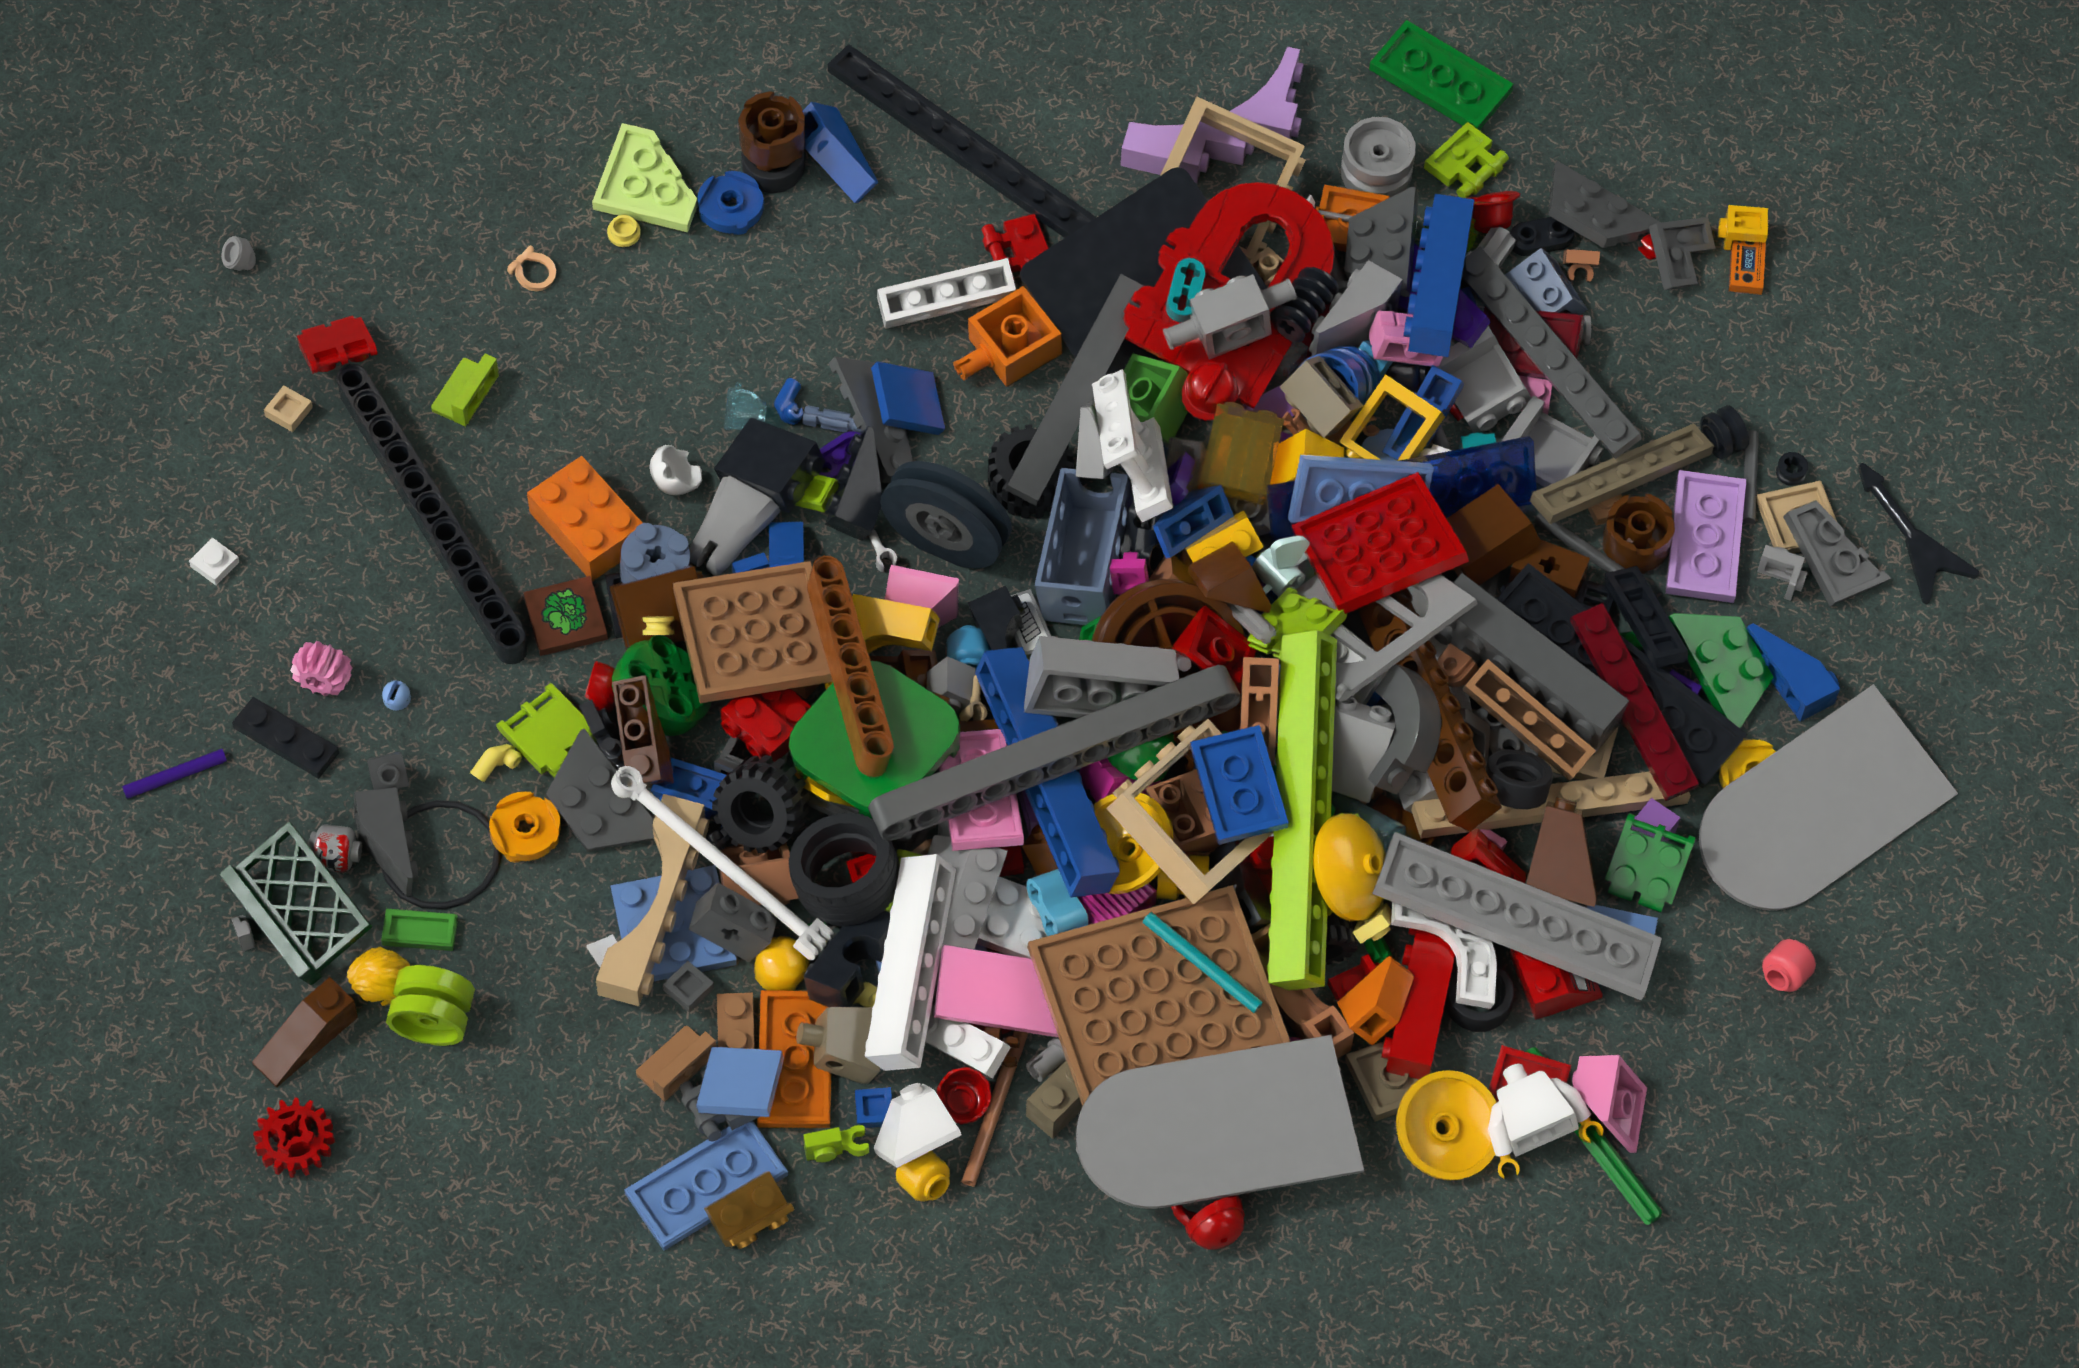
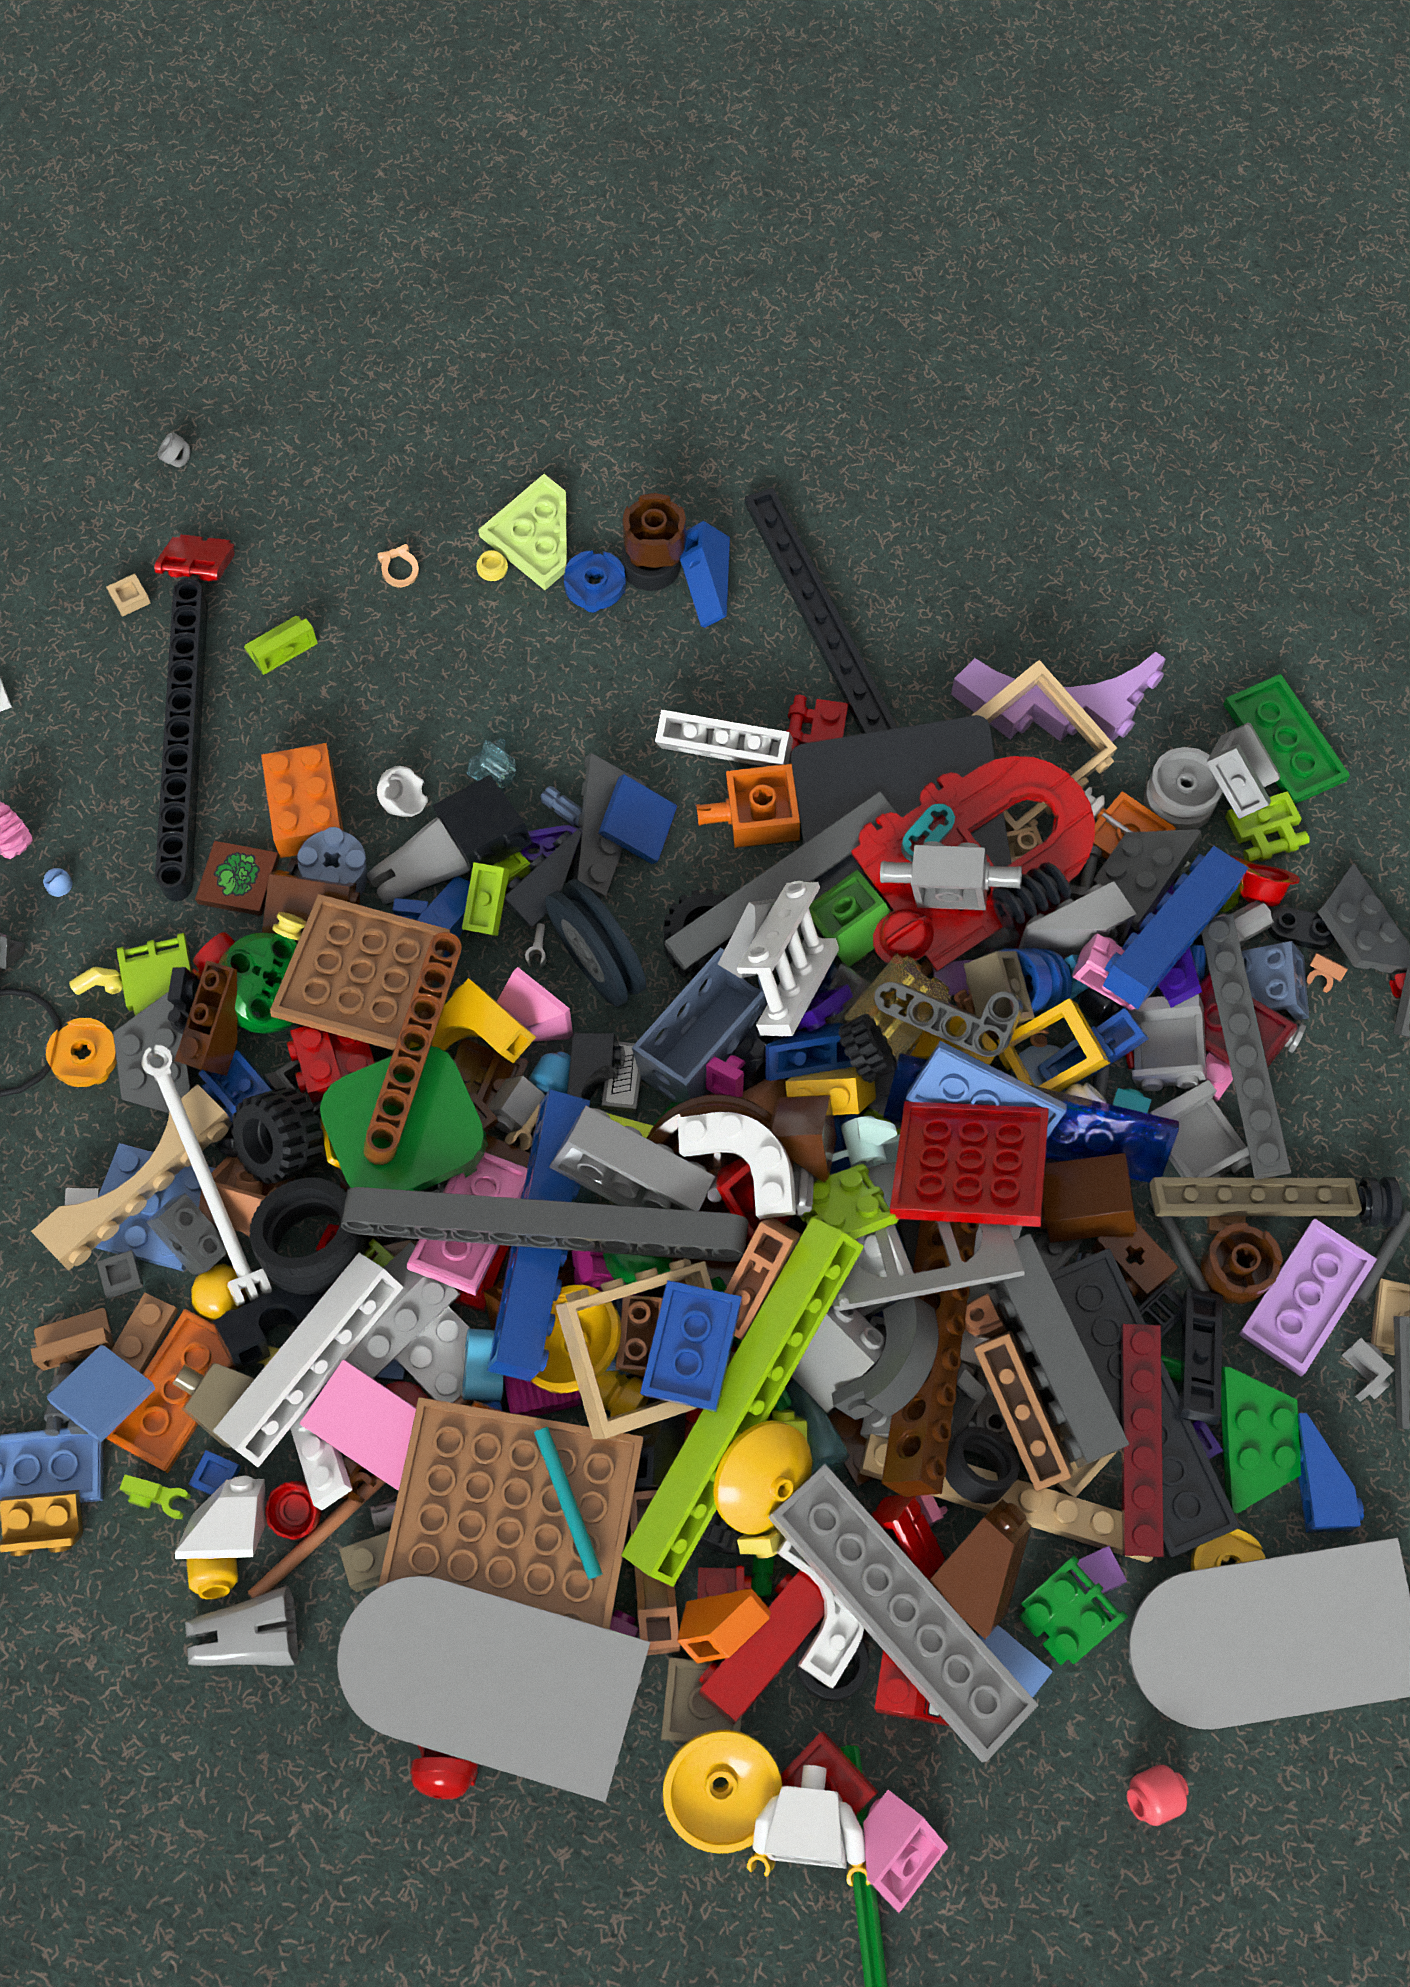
camera: 30 degrees right, 5 degrees up
(785, 402) = (535, 776): blue arm -> none
(819, 523) = (485, 899): none -> lime panel
(983, 1208) = (248, 1632): none -> light grey piece
(1194, 602) = (754, 1143): none -> white plate
(1239, 491) = (867, 1048): none -> black tyre
(1289, 430) = (945, 1012): none -> dark grey beam
(1422, 117) = (1243, 769): none -> light grey panel

